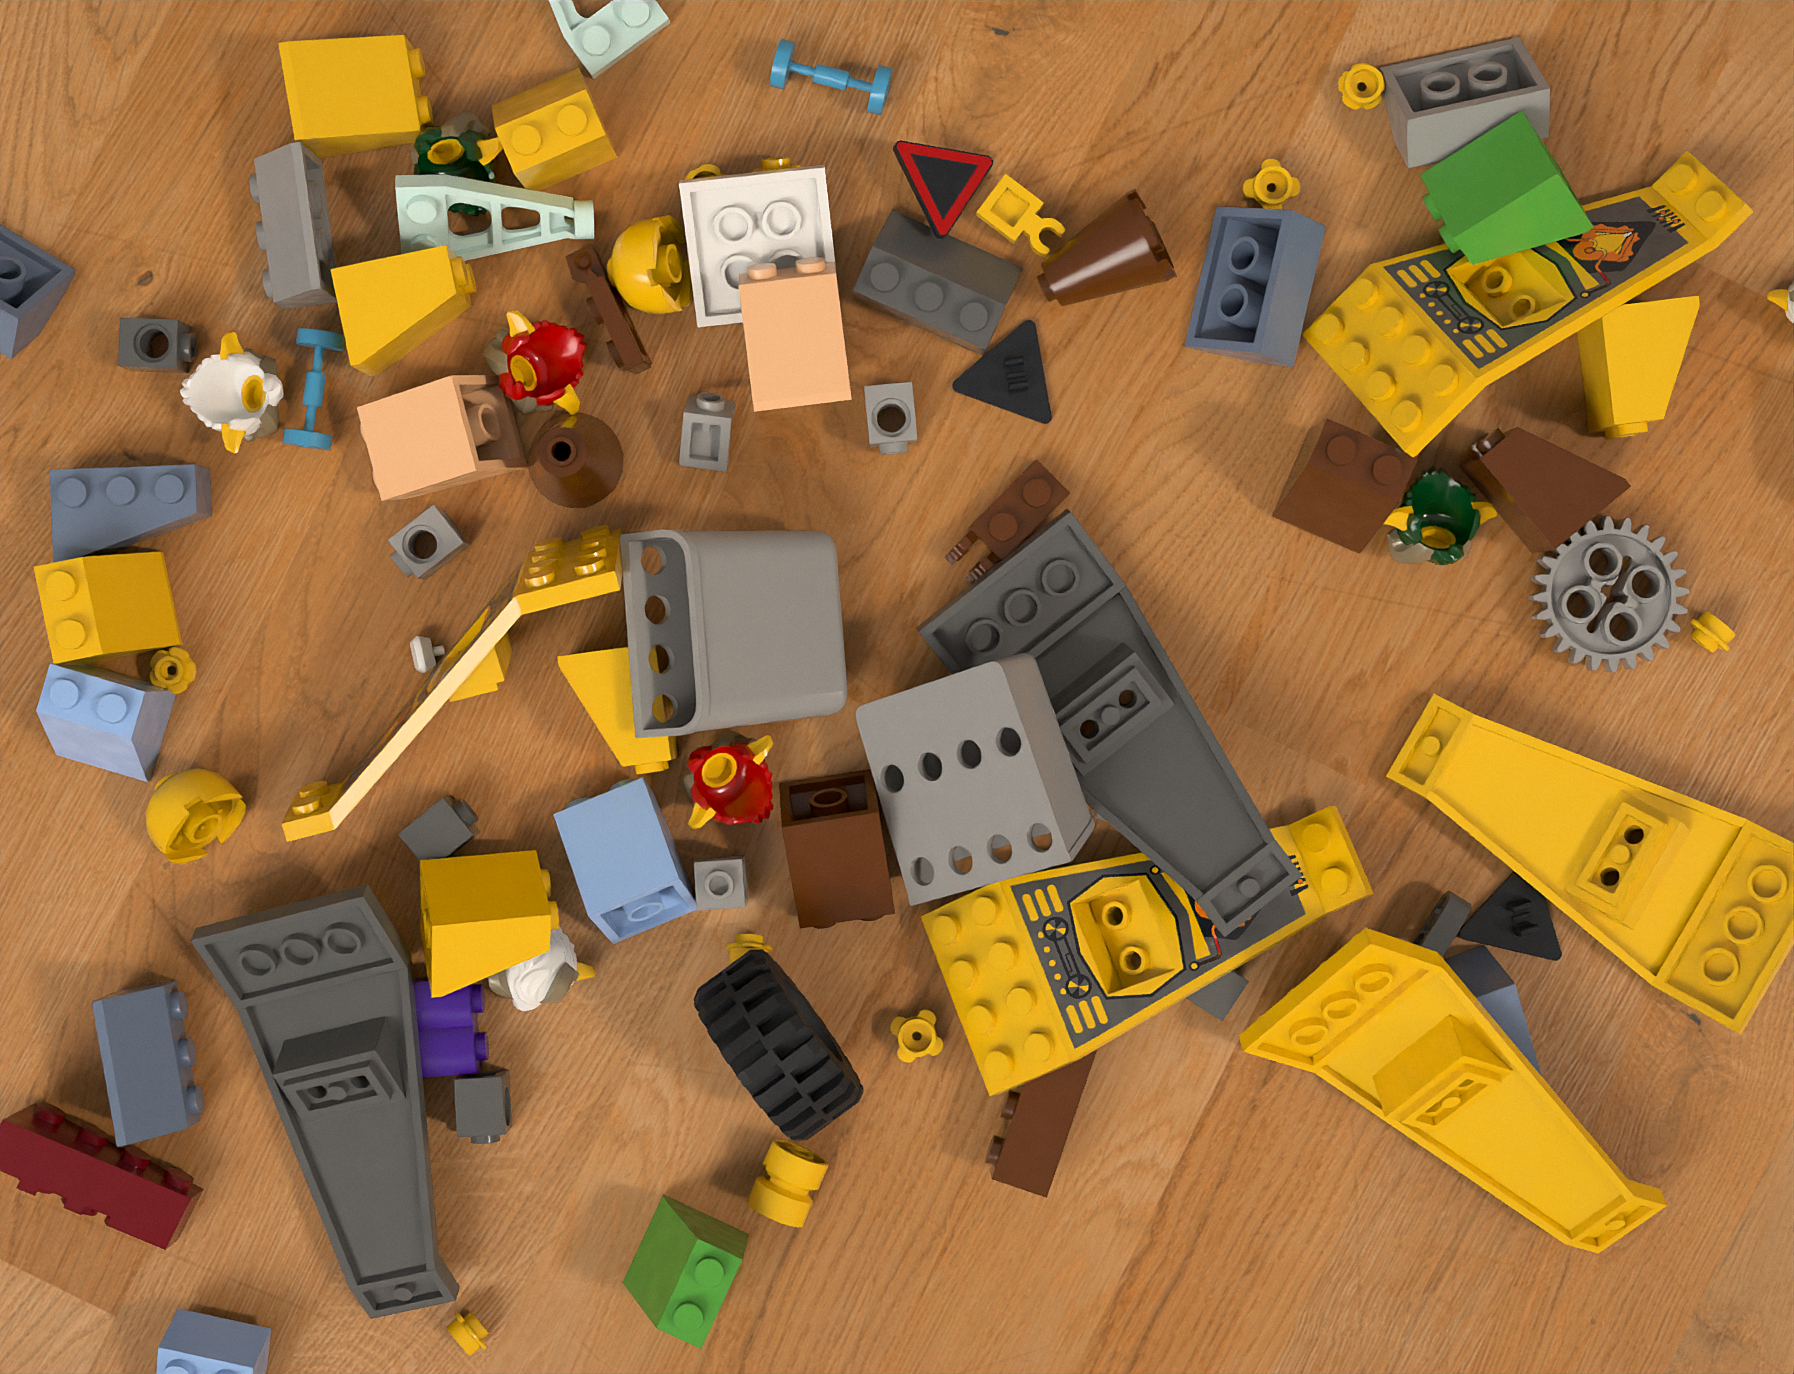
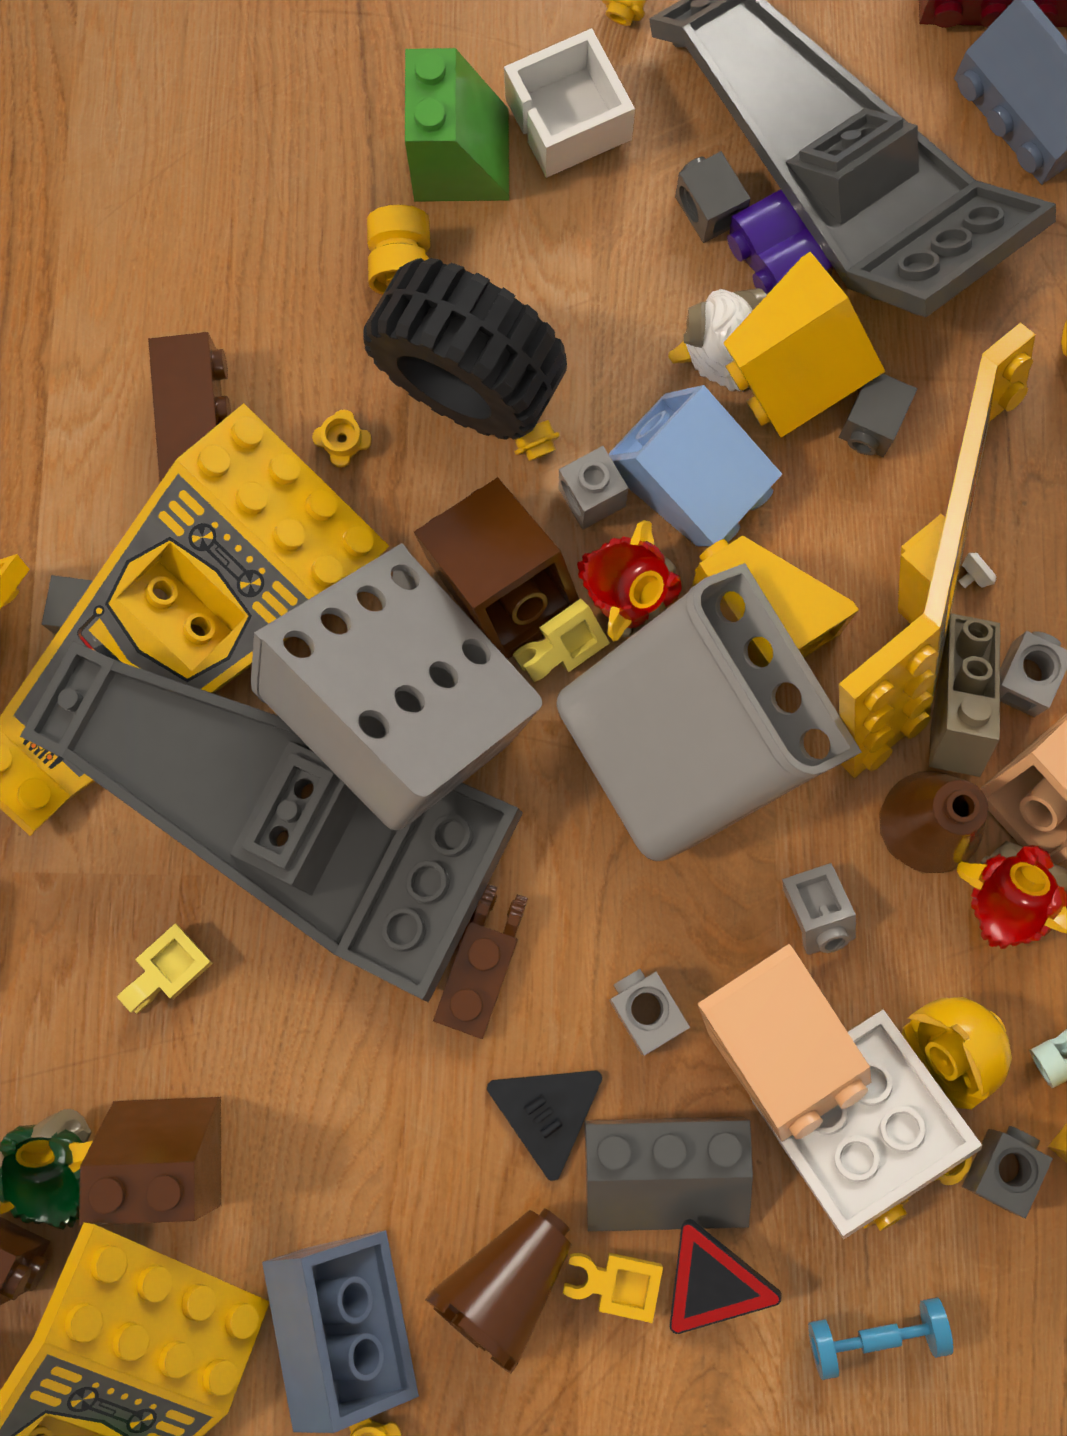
camera: 160 degrees right, 10 degrees down
(491, 551) = (967, 697): none -> dark tan slope
(569, 1251) = (569, 102): none -> white piece
(608, 308) = (945, 960): reddish brown hinge -> none
(668, 133) = (984, 1174): none -> dark grey brick
(805, 758) = (569, 640): none -> light yellow plate
(1266, 641) = (168, 966): none -> light yellow plate

